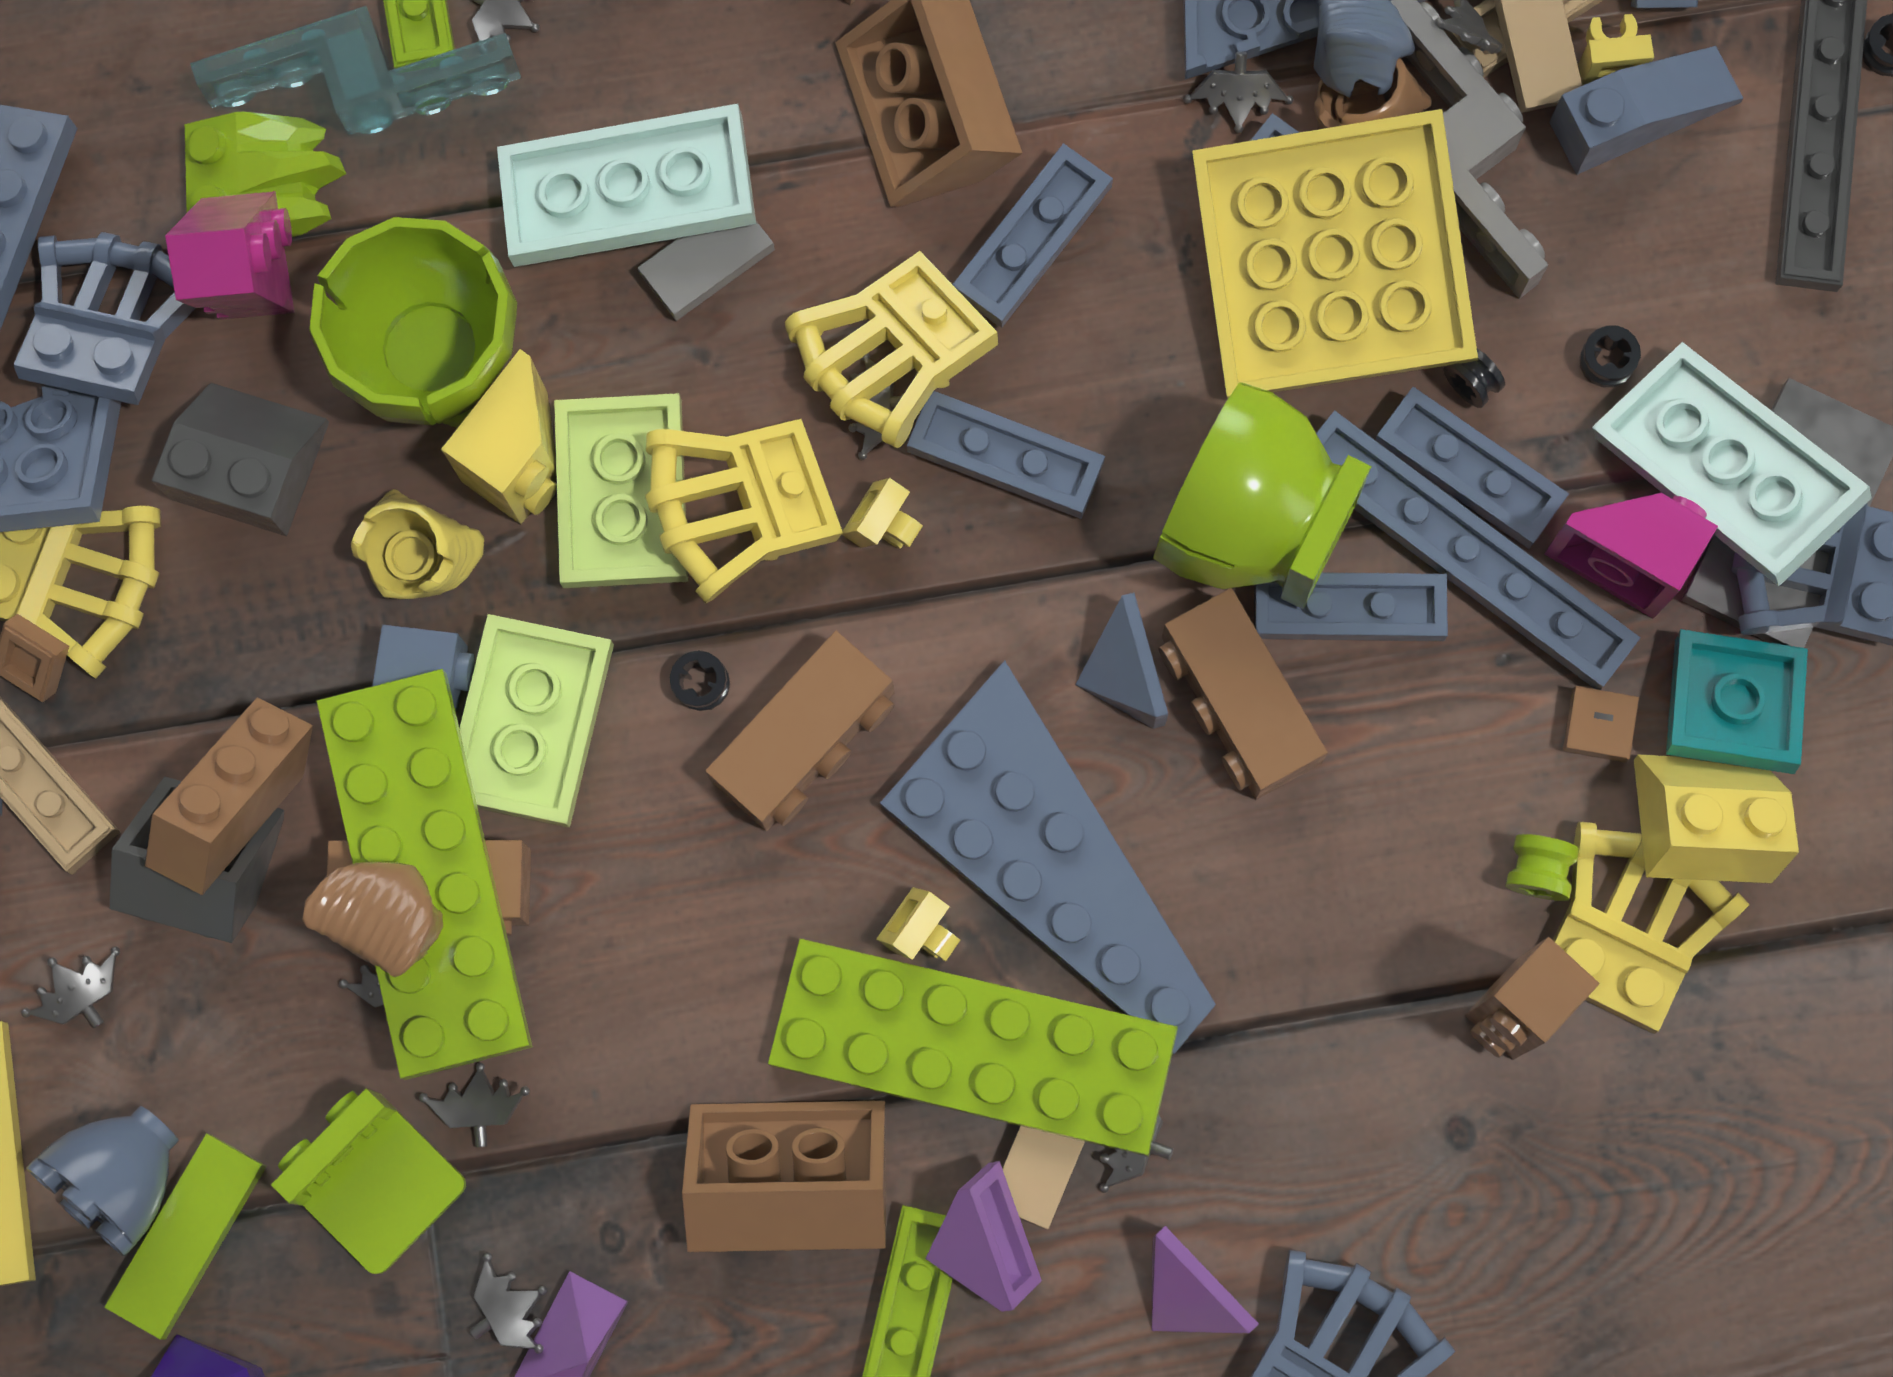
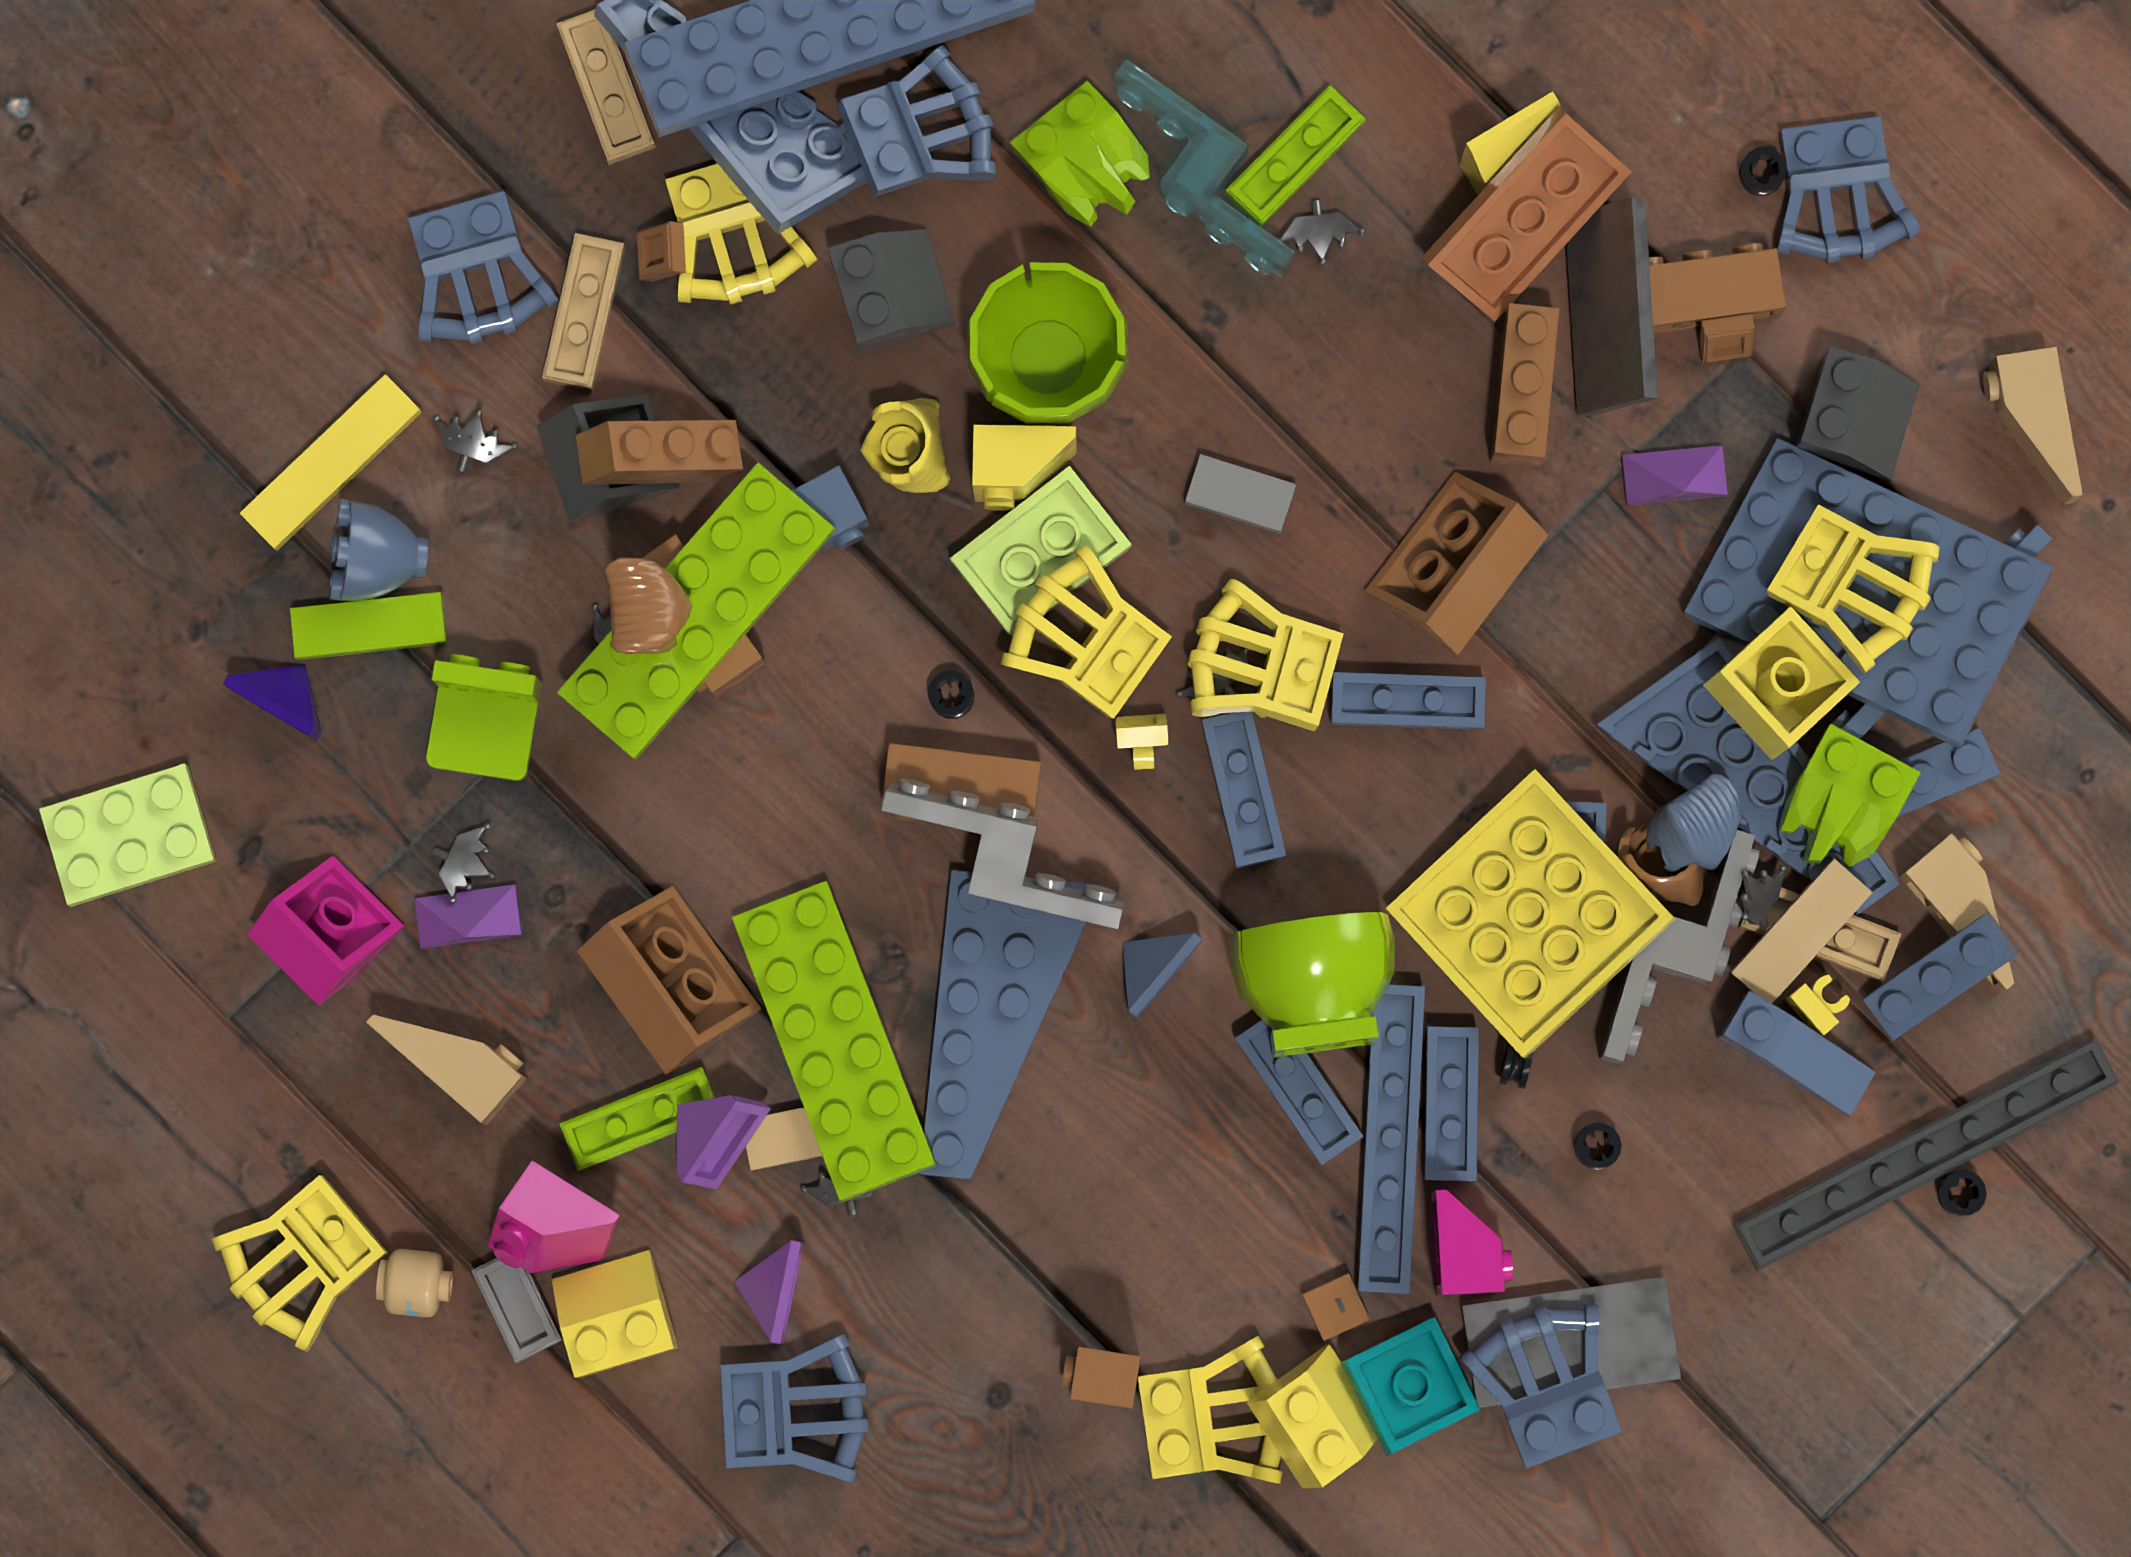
camera: 55 degrees right, 5 degrees up
(233, 256) = (1012, 189): dark pink wedge -> none
(477, 1106) = (577, 750): flat silver piece -> none
(532, 717) = (849, 604): yellowish green plate -> none
(625, 185) = (1249, 406): light aqua plate -> none
(904, 728) = (1003, 853): none -> light grey bracket
(917, 927) = (886, 950): light yellow tile -> none
(1239, 91) = (1611, 769): flat silver piece -> none
(1241, 695) = (1185, 1056): medium nougat brick -> none
(1542, 867) = (1208, 1331): lime wheel -> none
(1736, 459) = (1566, 1273): light aqua plate -> none

